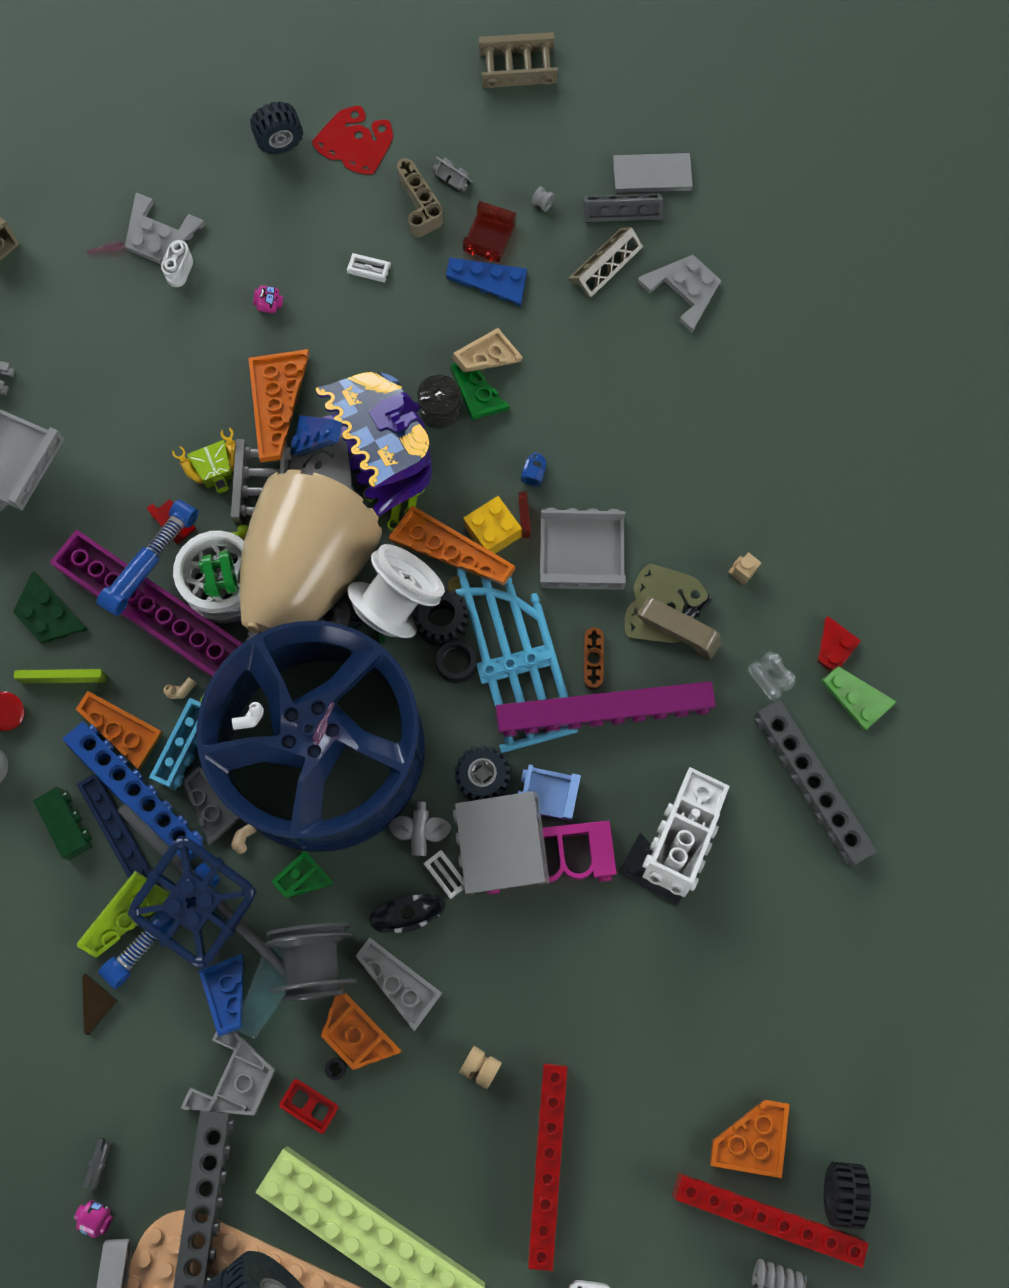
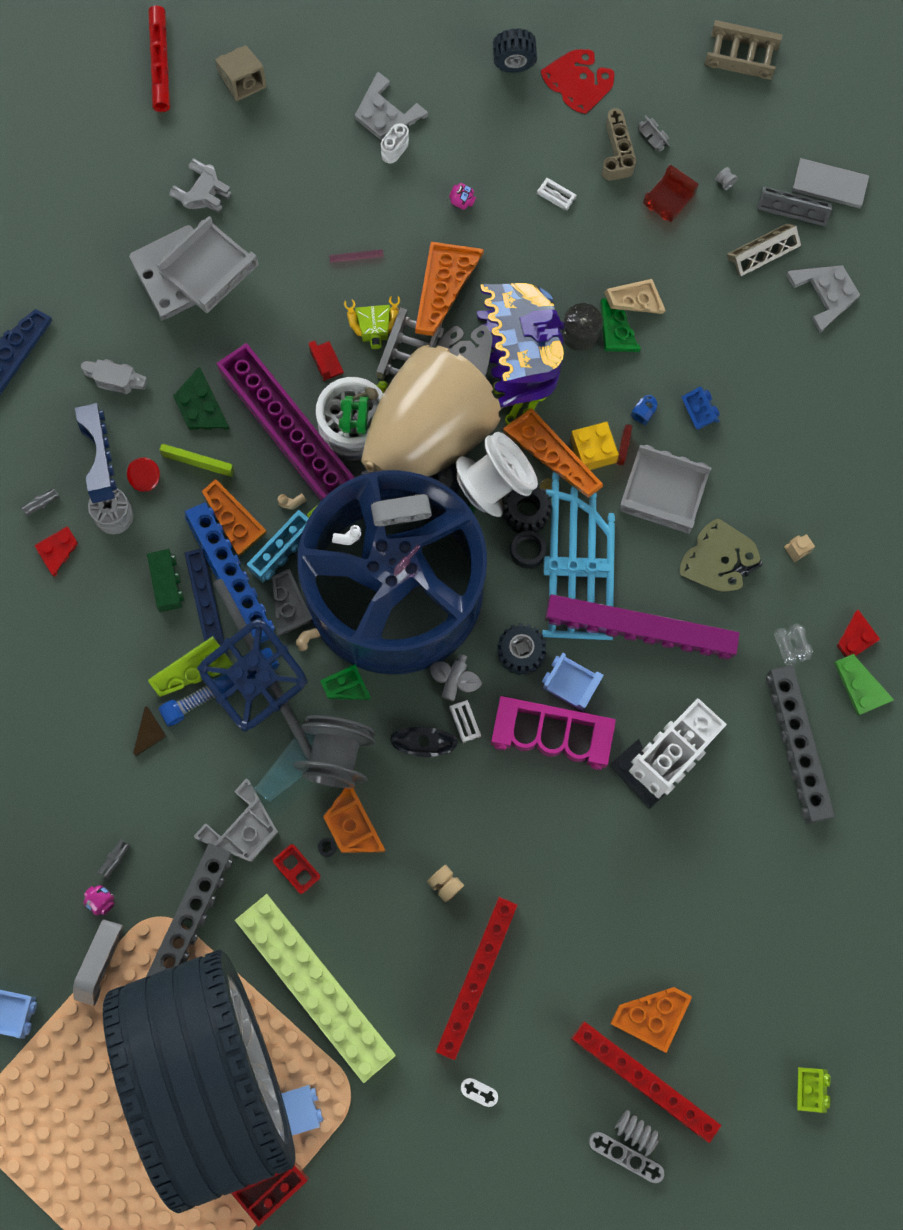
camera: 15 degrees right, 0 degrees up
(108, 247) = (340, 112): clear pink piece -> none
(115, 598) = (264, 407): blue piece -> none
(171, 397) = (356, 255): none -> clear pink bar
(225, 993) = (255, 756): blue wing -> none
(227, 544) = (369, 392): none -> dark tan hand
(300, 669) = (401, 510): none -> light grey beam
(314, 434) = (468, 323): blue wing -> none
(402, 985) = (401, 798): light grey wing -> none
(496, 279) = (664, 237): blue wing -> none
(501, 843) = (519, 708): light grey panel -> none
(592, 450) = (700, 407): none -> blue bracket
(599, 674) = (646, 597): dark orange beam -> none
(680, 626) = (744, 595): dark tan beam -> none
(847, 1195) = (716, 1081): black tyre -> none
(952, 1165) = (813, 1090): none -> lime bracket

